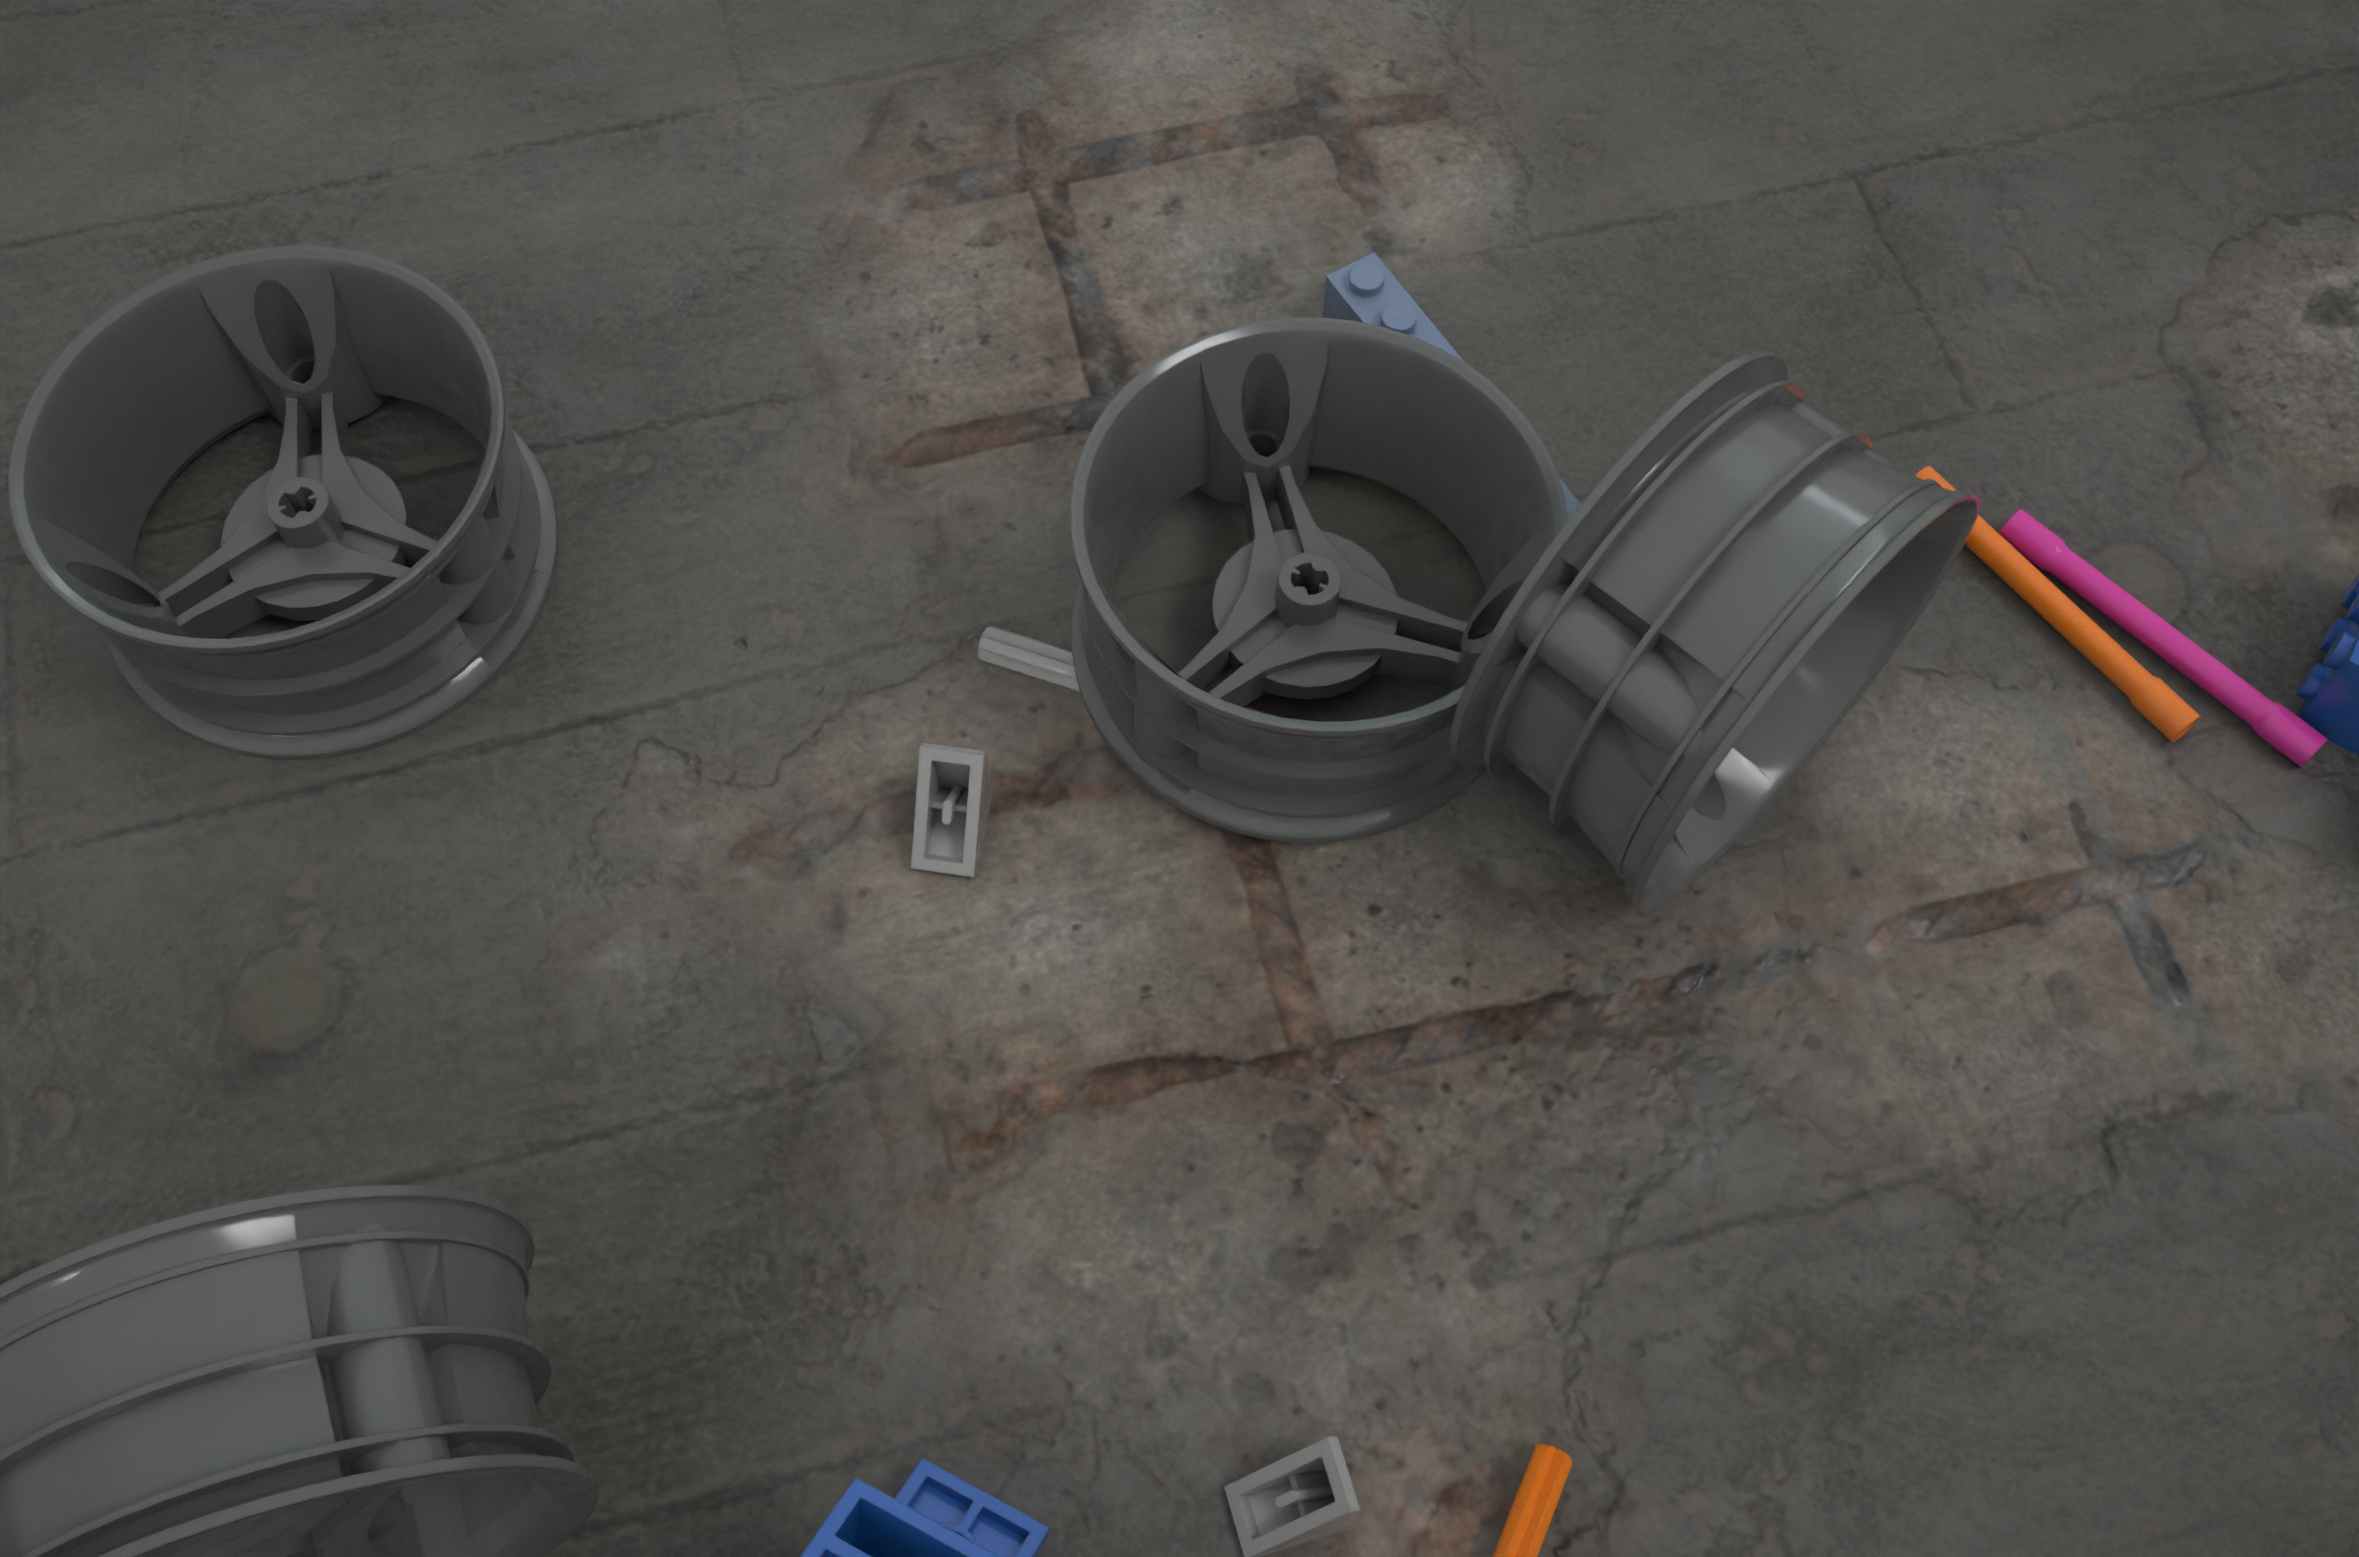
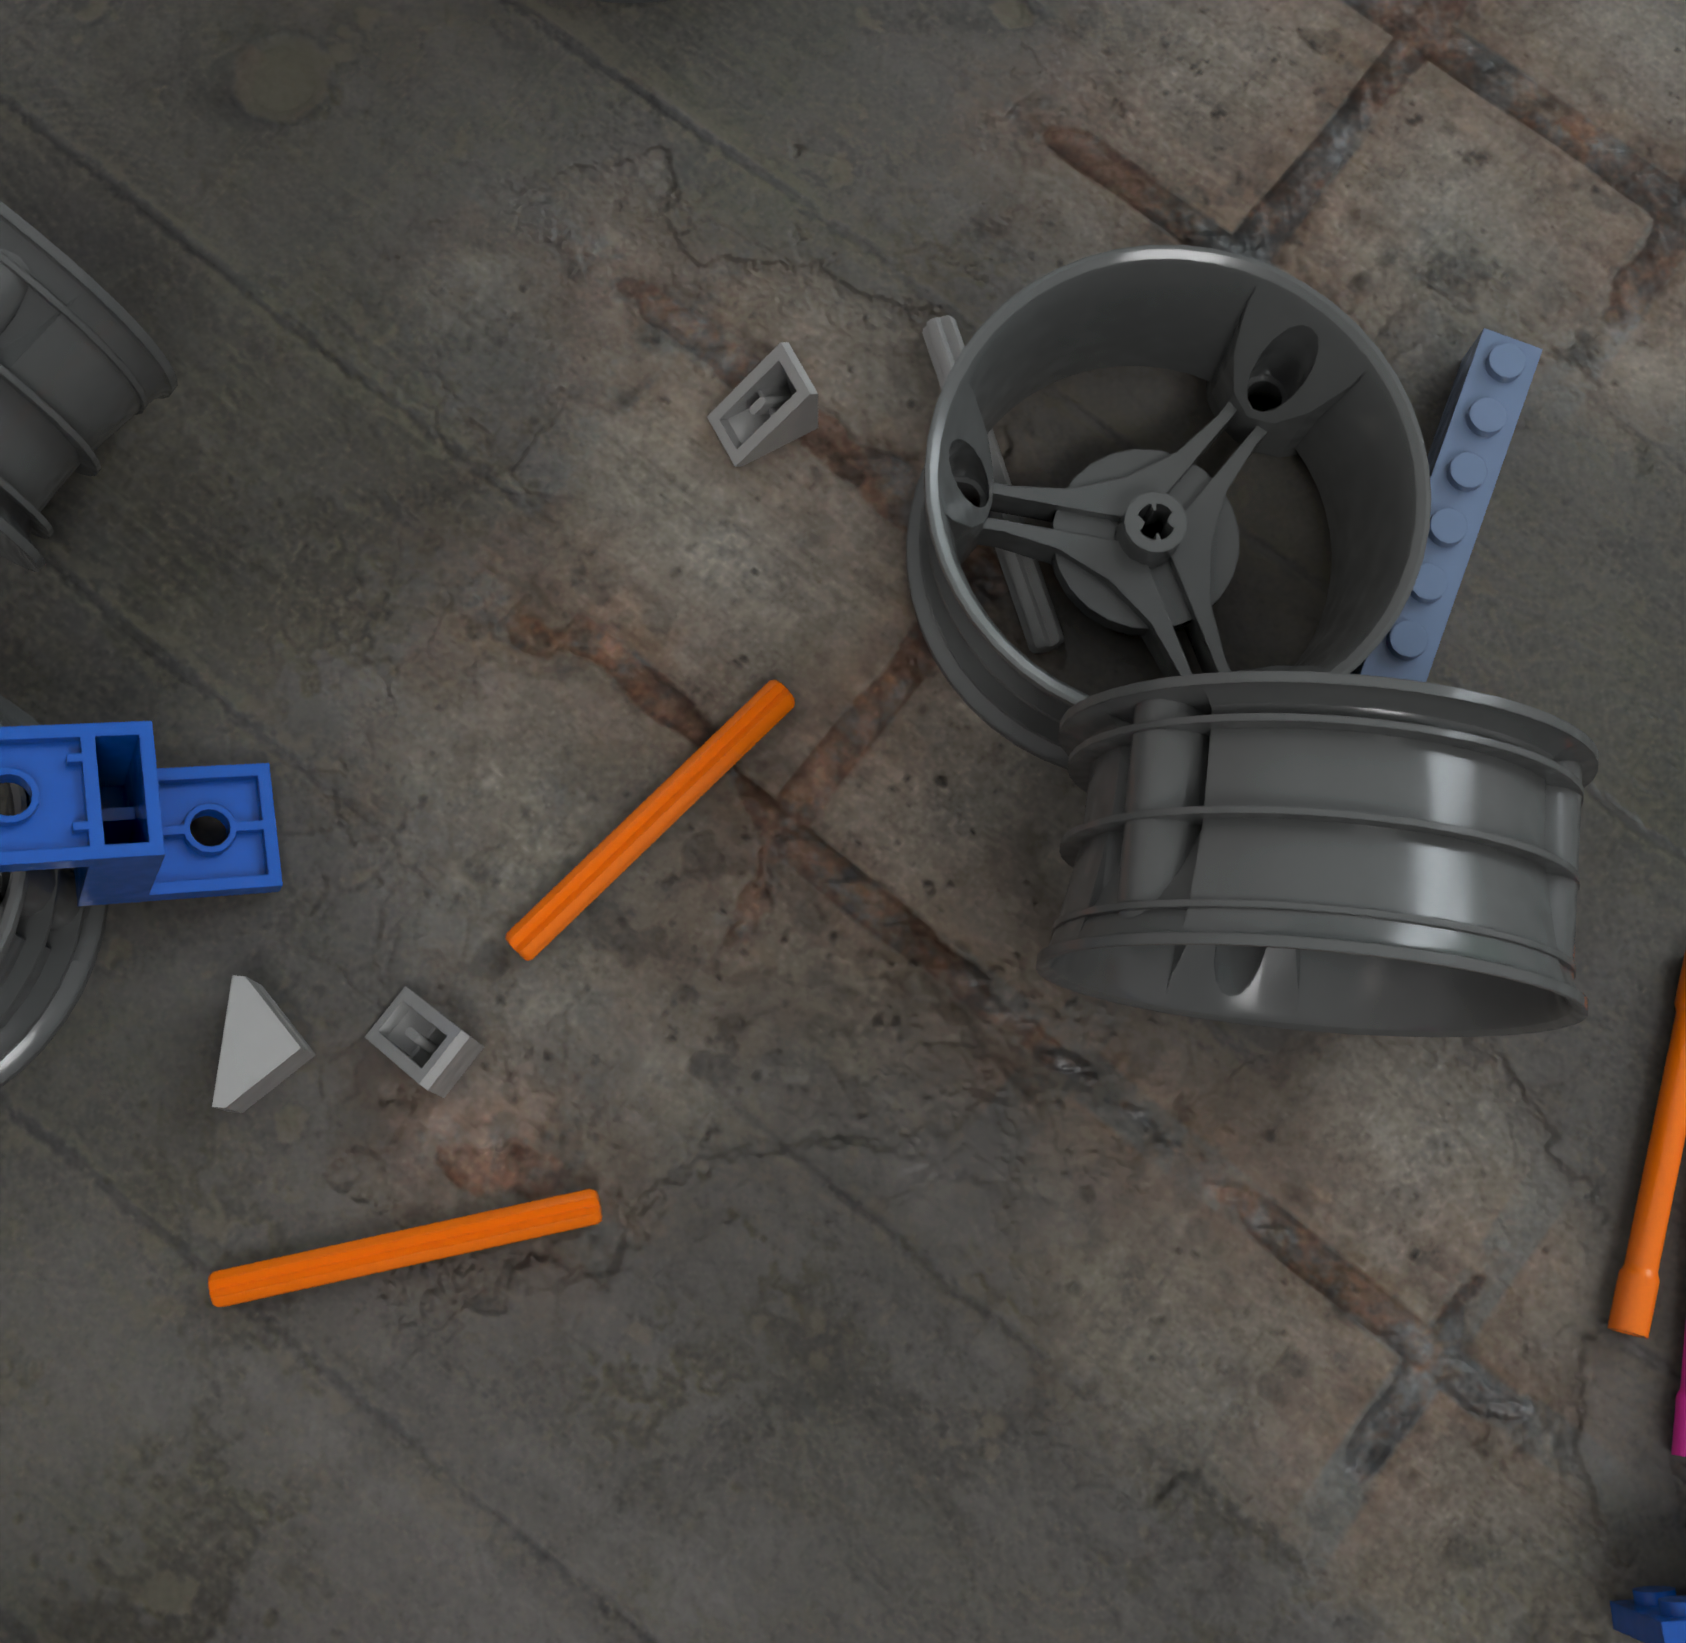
camera: 50 degrees right, 15 degrees up
(1235, 1167) = (650, 820): none -> orange axle

